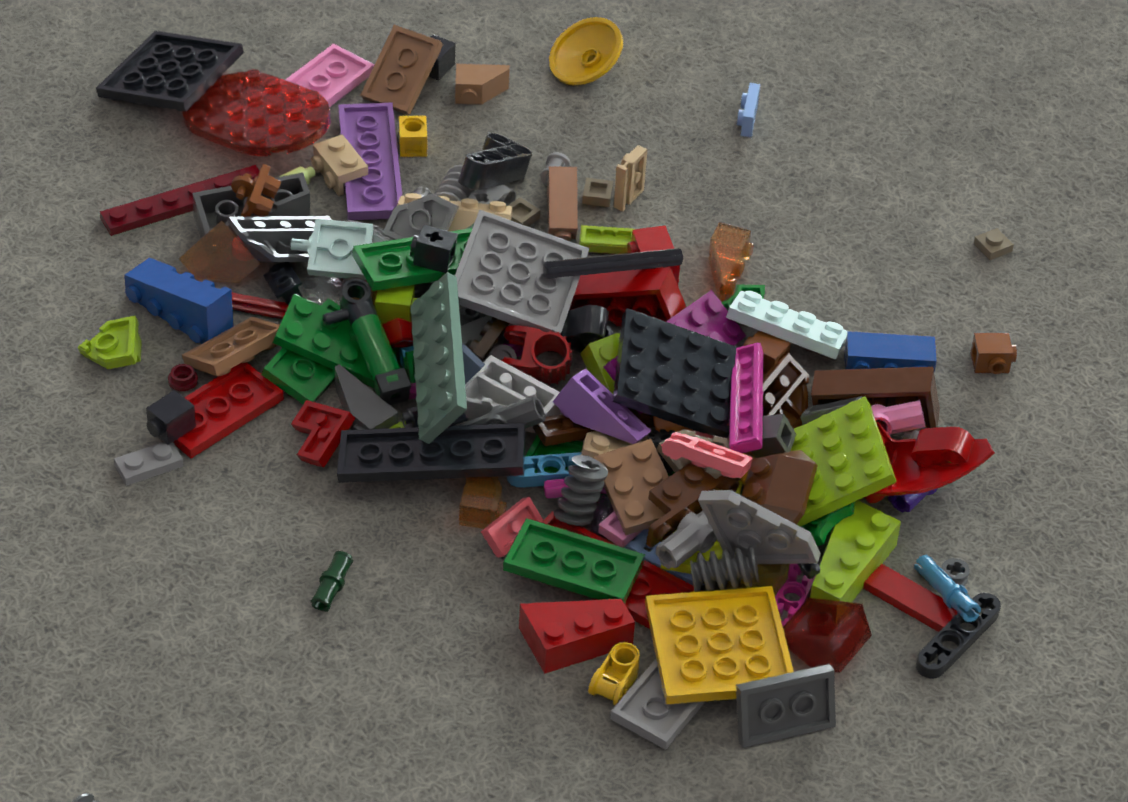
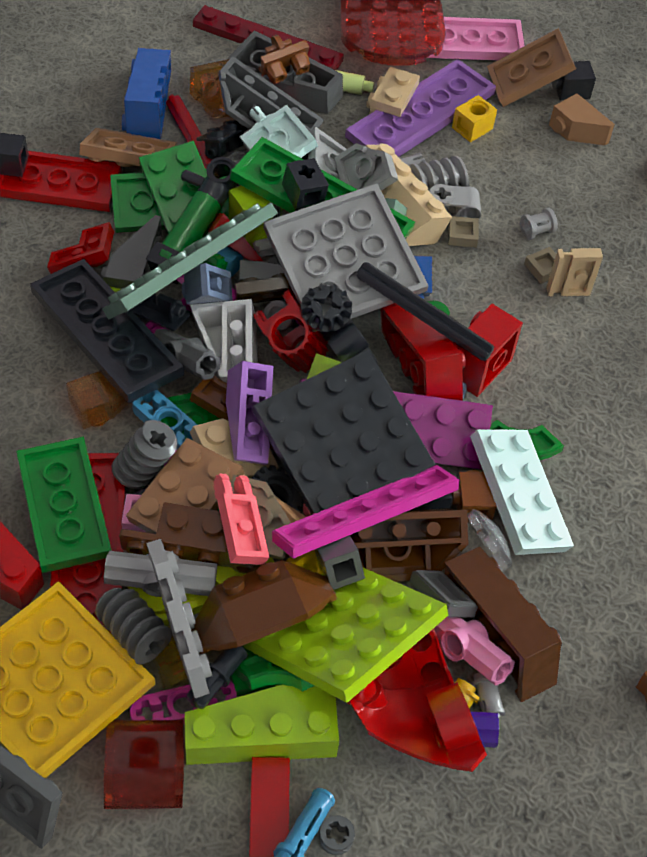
camera: 50 degrees right, 10 degrees up
(115, 344) = (74, 90): lime plate -> none
(182, 377) = (72, 141): dark red plate -> none
(496, 164) = (498, 185): black beam -> none
(504, 529) = (98, 435): coral plate -> none
(554, 320) = (334, 318): none -> black gear
(562, 202) = (497, 248): nougat slope -> none
(605, 239) = (488, 292): lime plate -> none
(726, 257) = (566, 395): clear orange slope -> none
(815, 359) = (492, 538): none -> clear dish
(888, 351) = (572, 599): blue brick -> none

